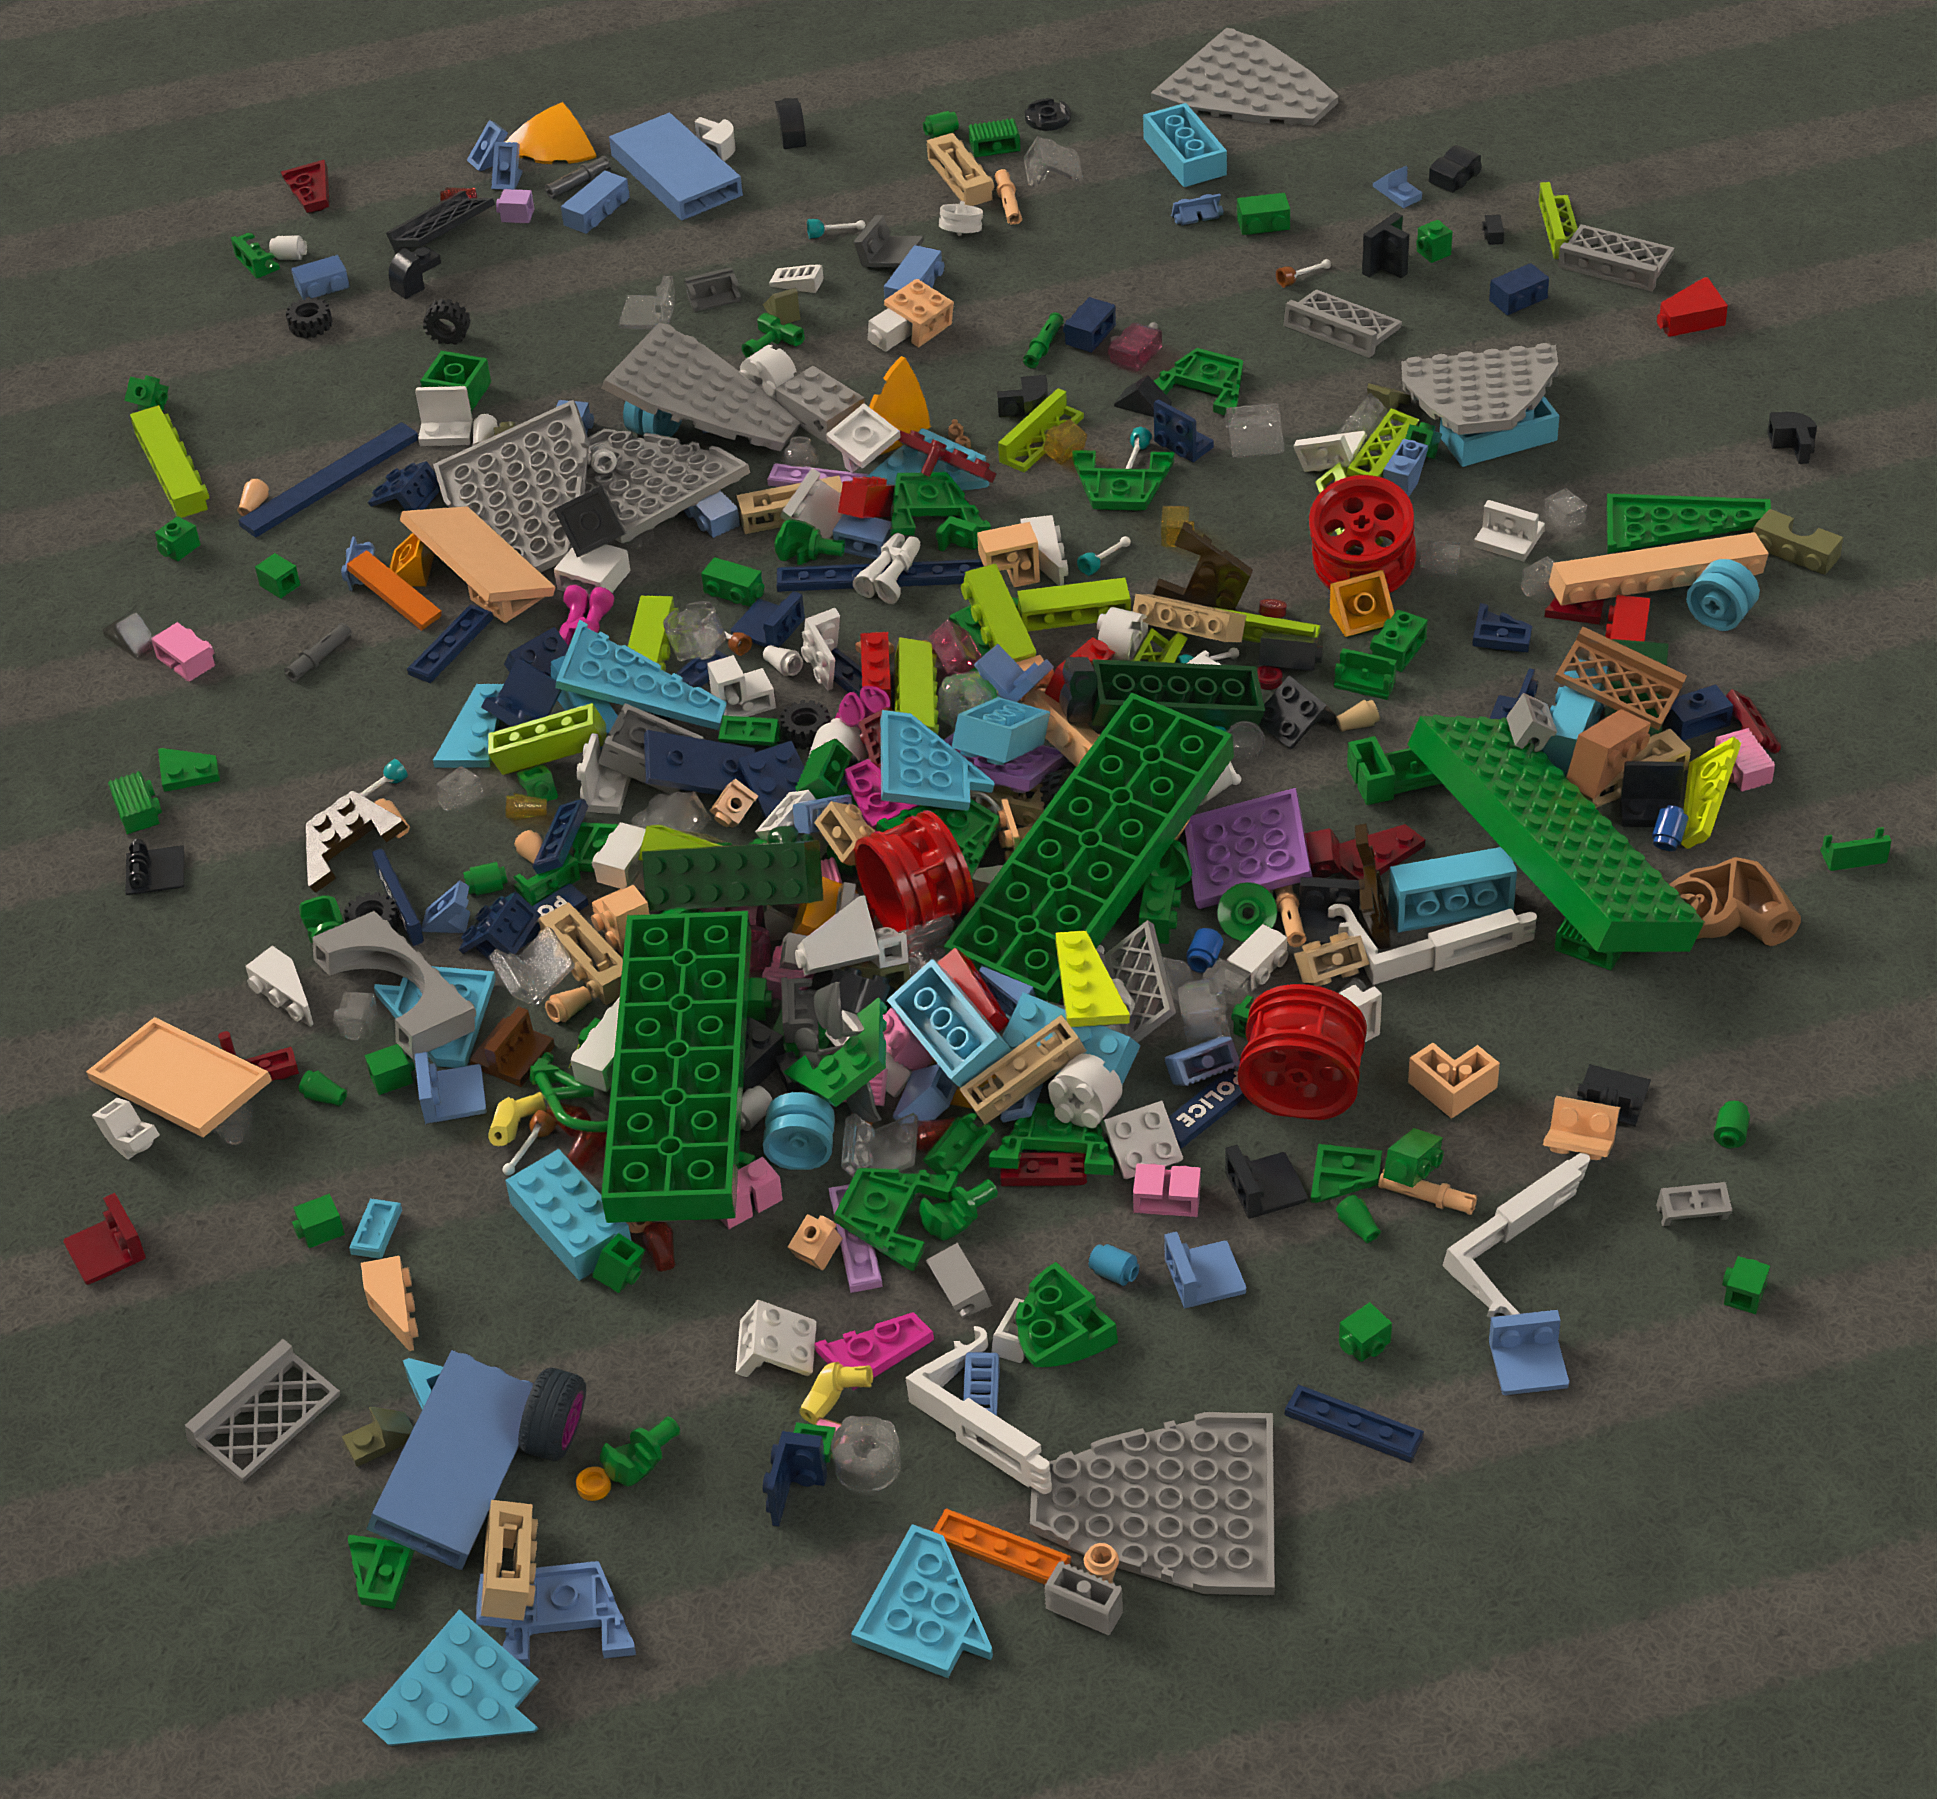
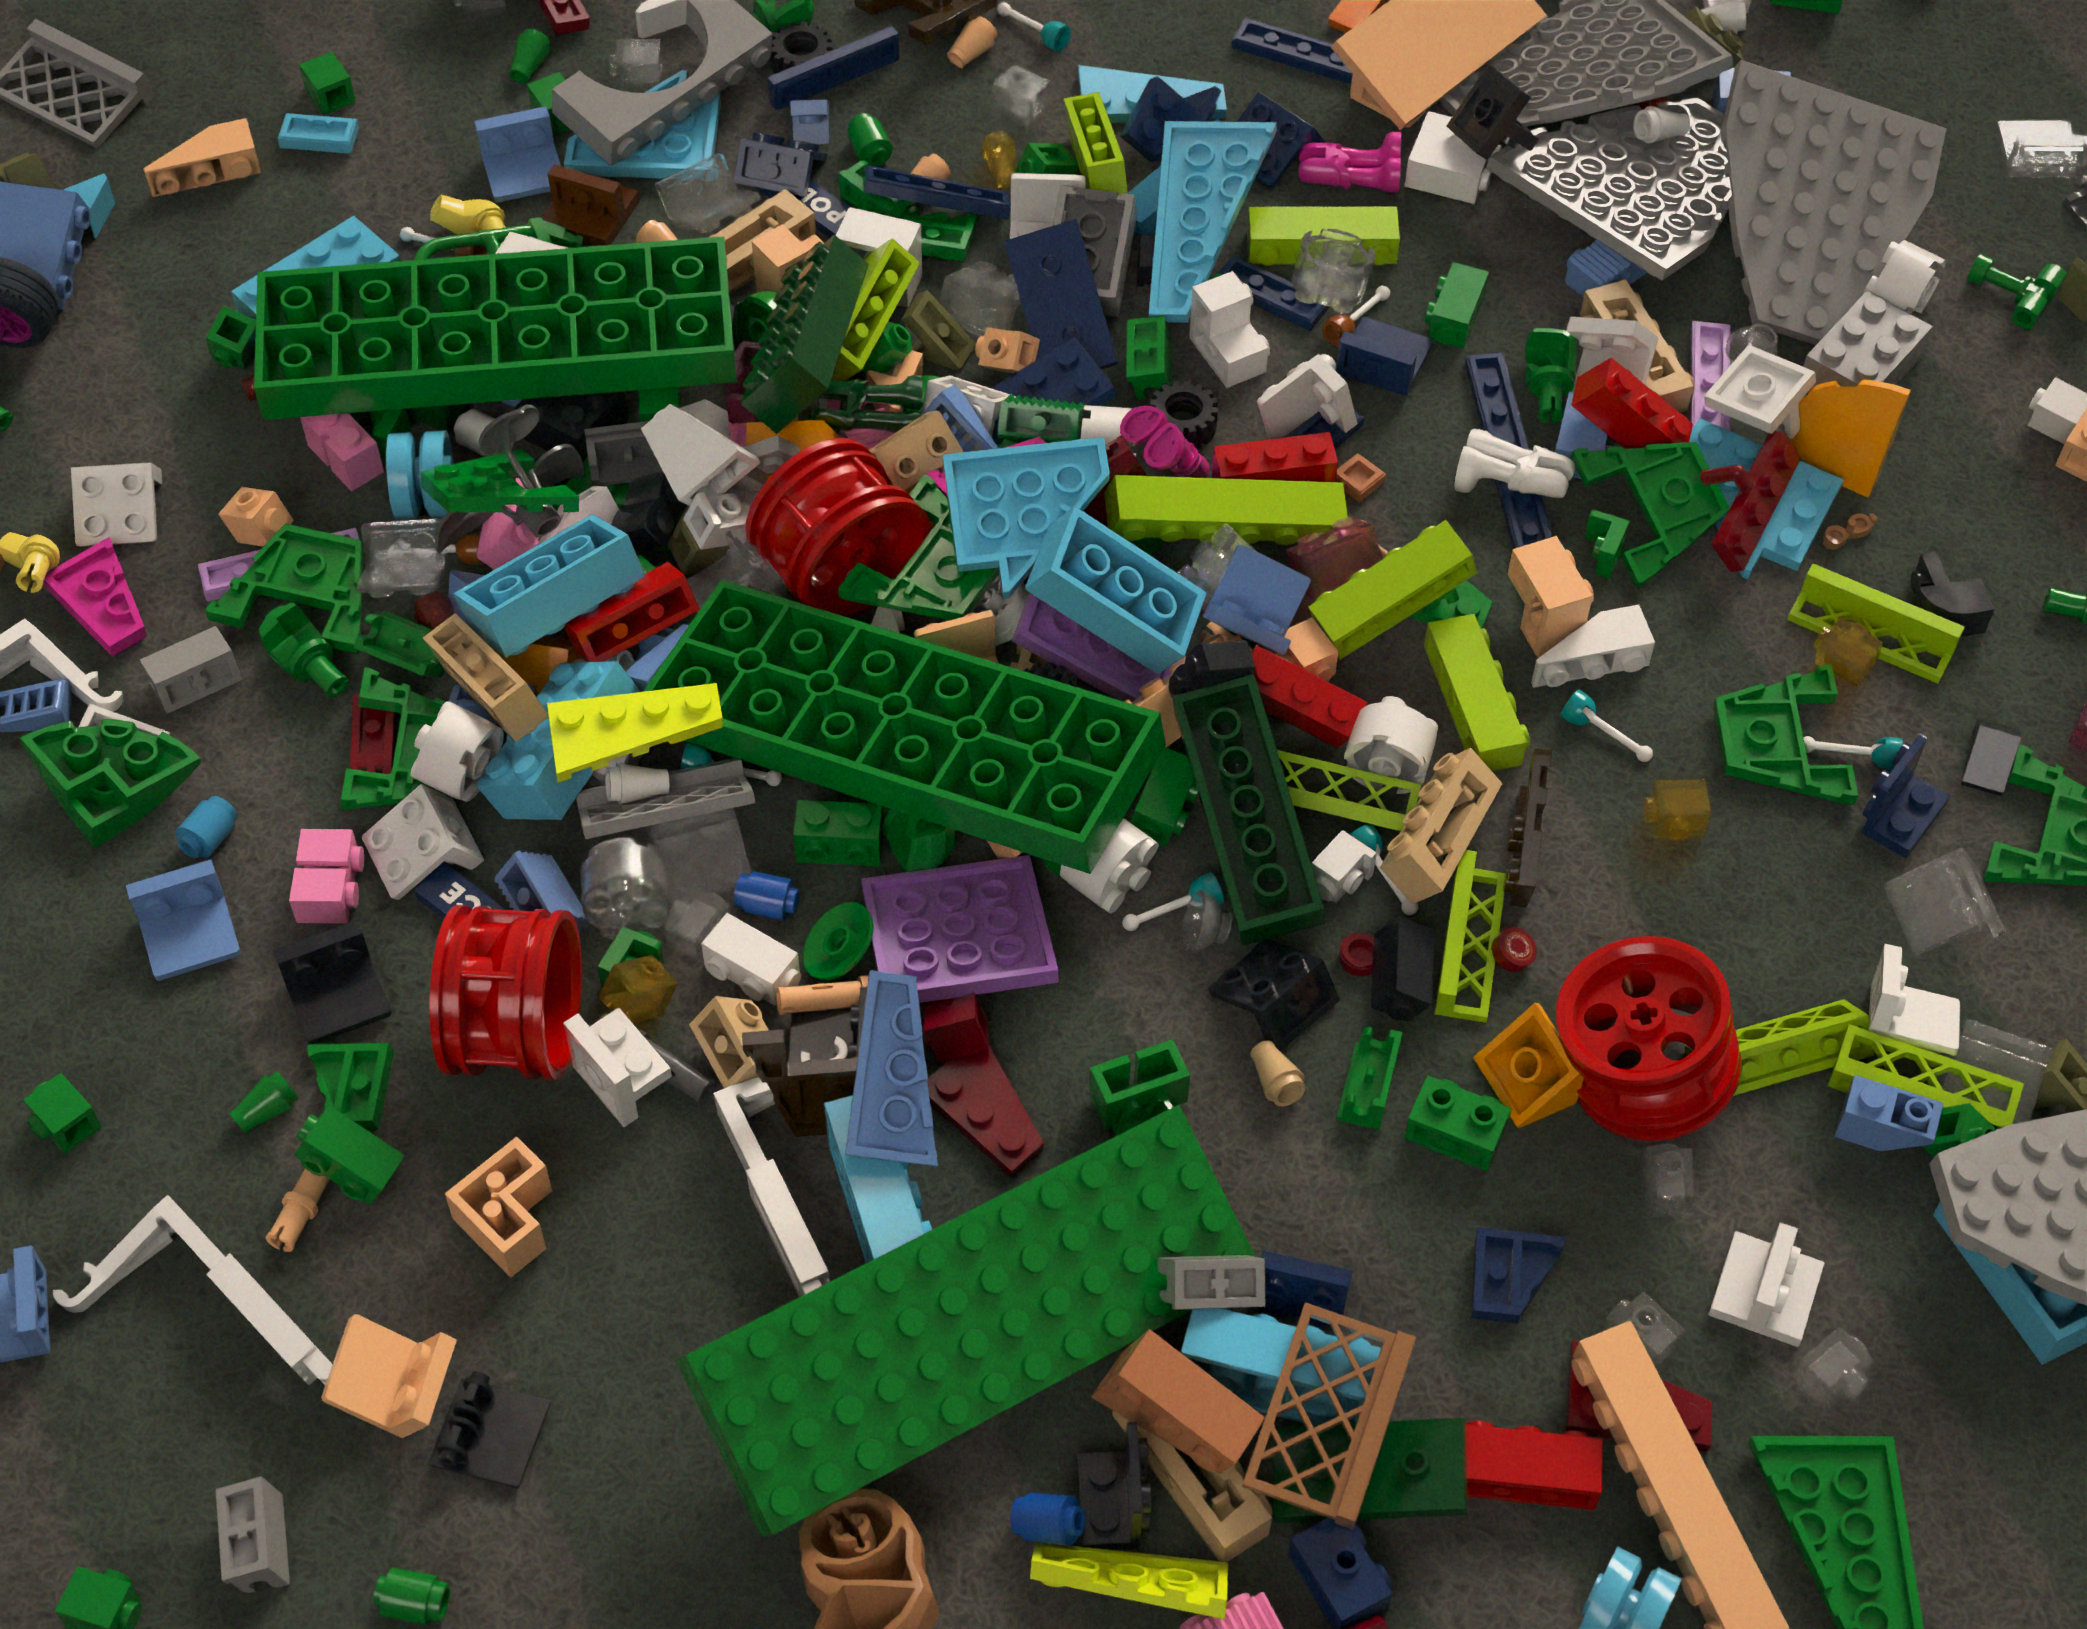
camera: 80 degrees right, 10 degrees up
(1391, 836) = (890, 1090): none -> medium blue wing

